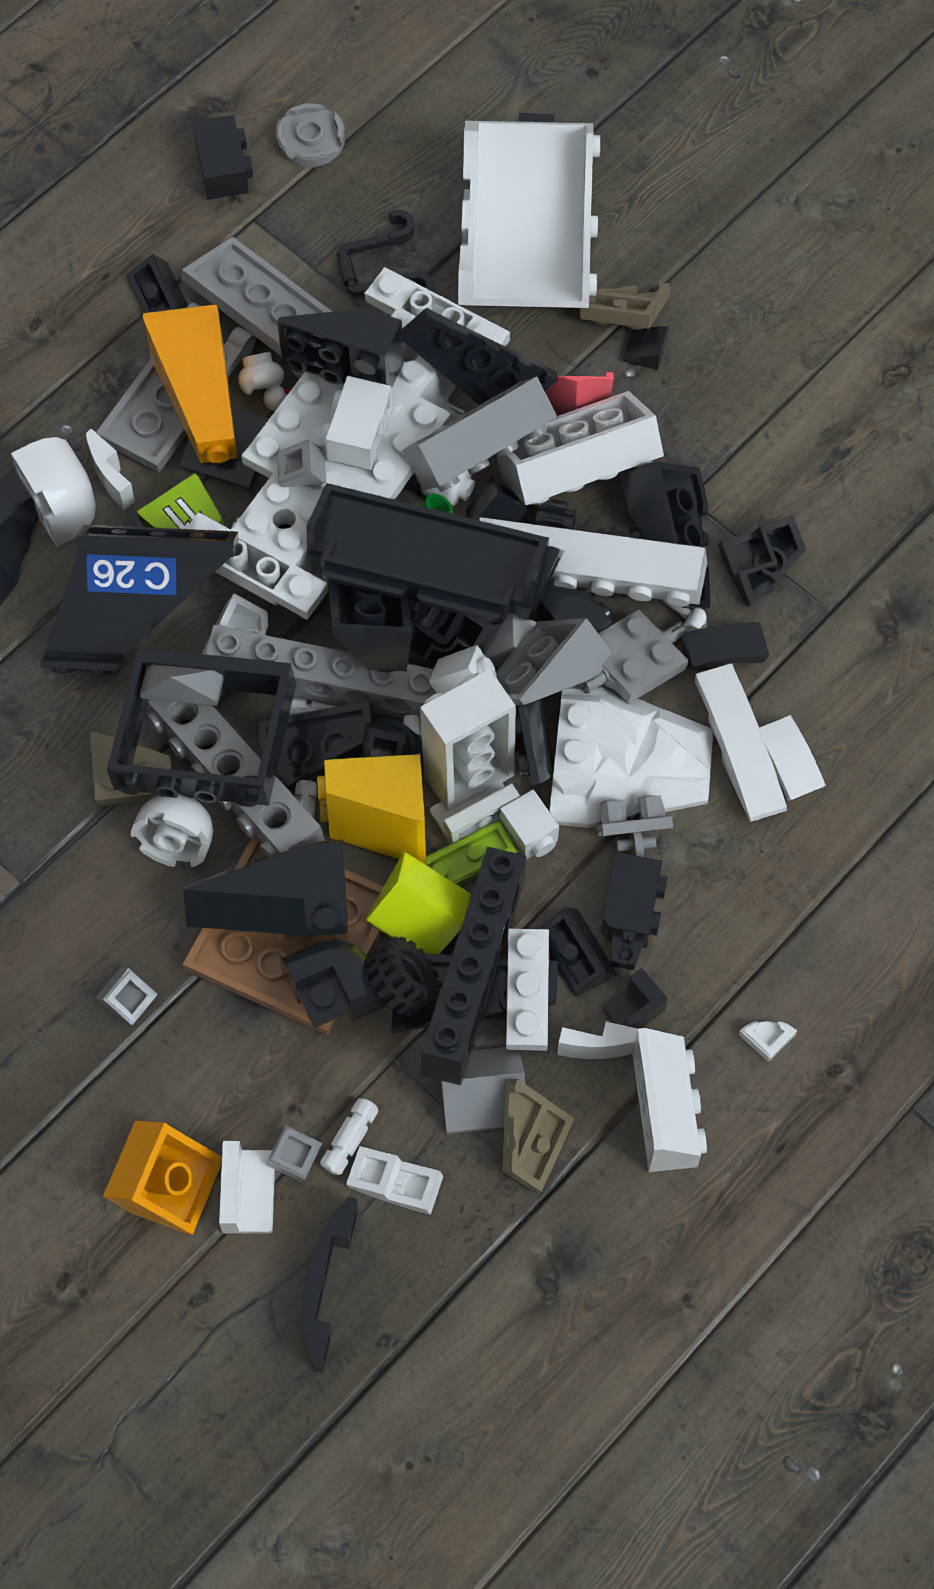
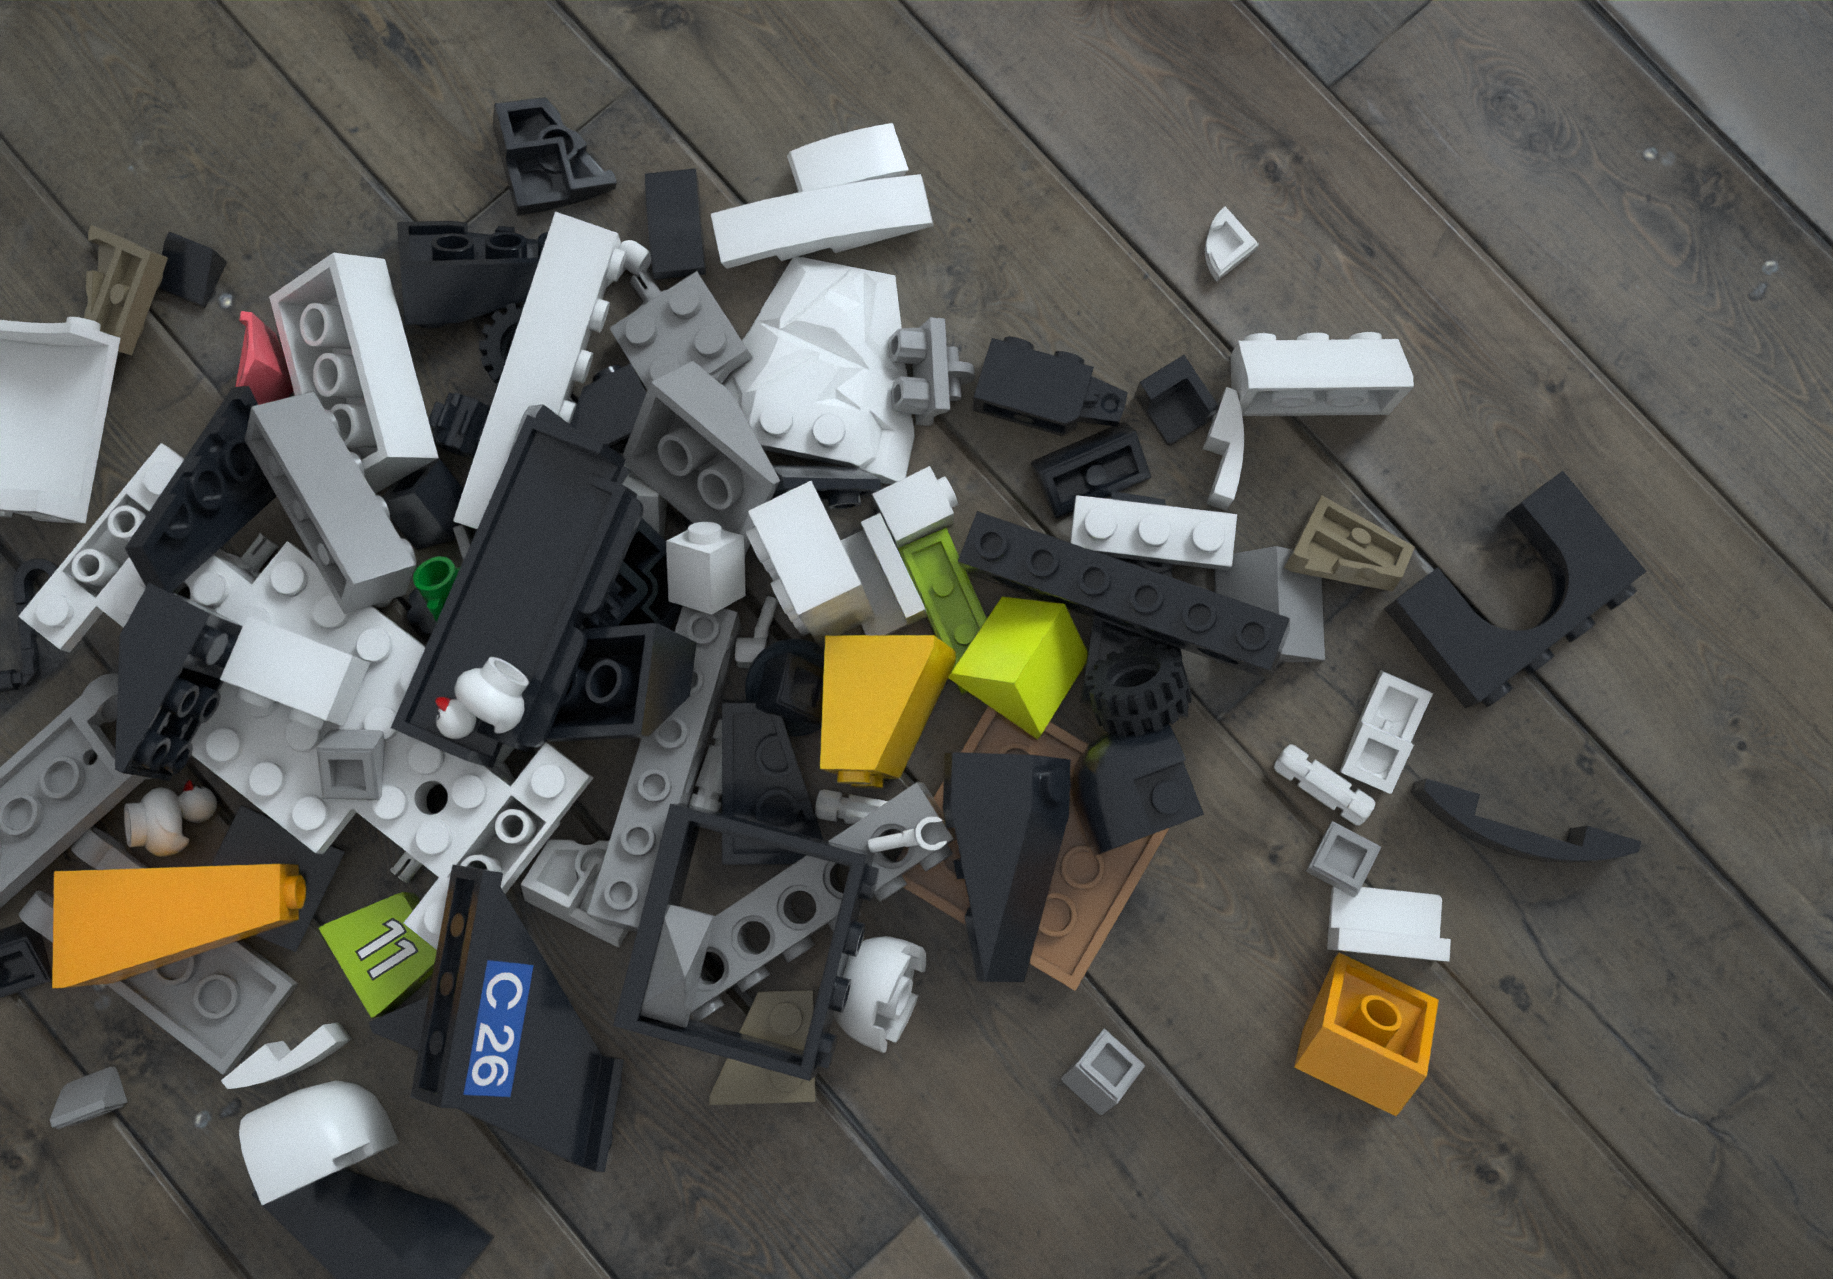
camera: 80 degrees left, 15 degrees up
(76, 360) = (88, 1098): none -> light grey slope
(280, 824) = (907, 838): none -> white hand
(350, 532) = (484, 693): none -> white animal
(533, 1323) = (1586, 571): none -> black arch

